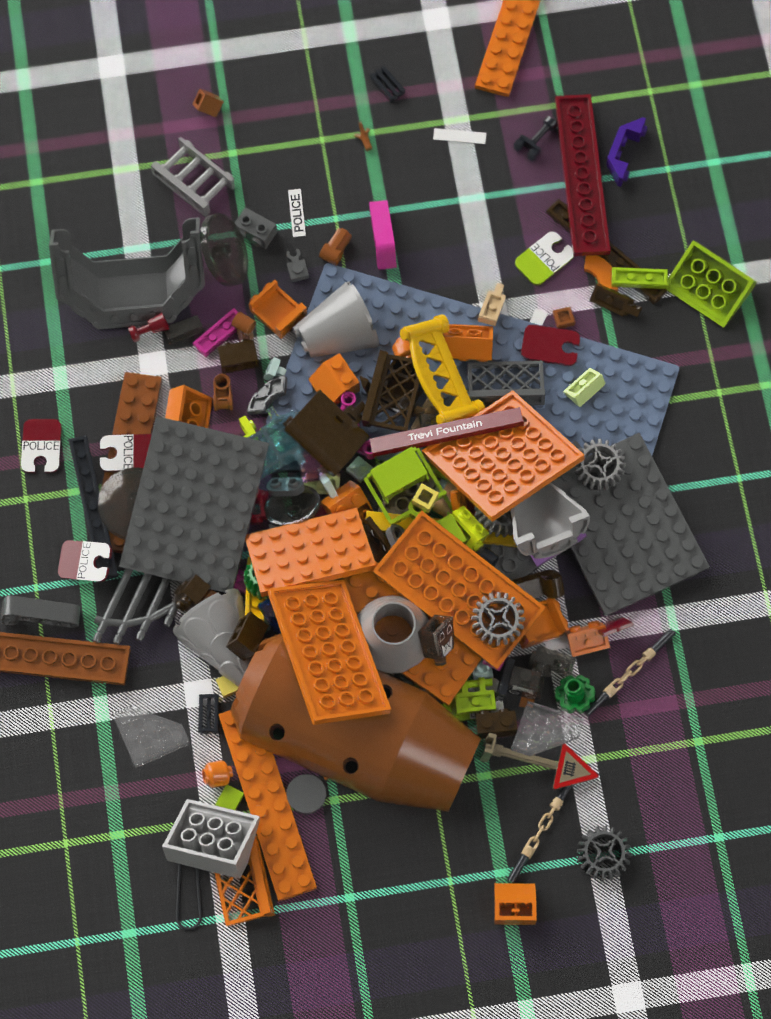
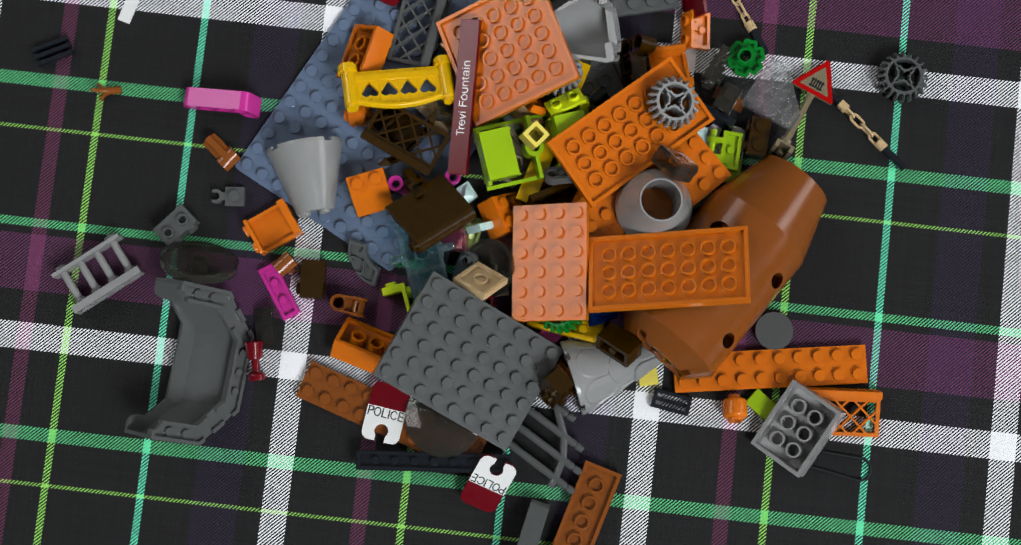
camera: 75 degrees left, 15 degrees up
(43, 440) = (343, 497): piece -> none
(148, 734) = (676, 464): clear plate -> none
(207, 102) = (17, 237): dark orange panel -> none
(273, 370) = (337, 248): light aqua tile -> none
(275, 496) = (480, 280): none -> tan tile
(296, 211) = (169, 181): white sticker -> none
(492, 306) = (334, 17): tan hinge -> none
(514, 904) = (928, 169): orange slope -> none

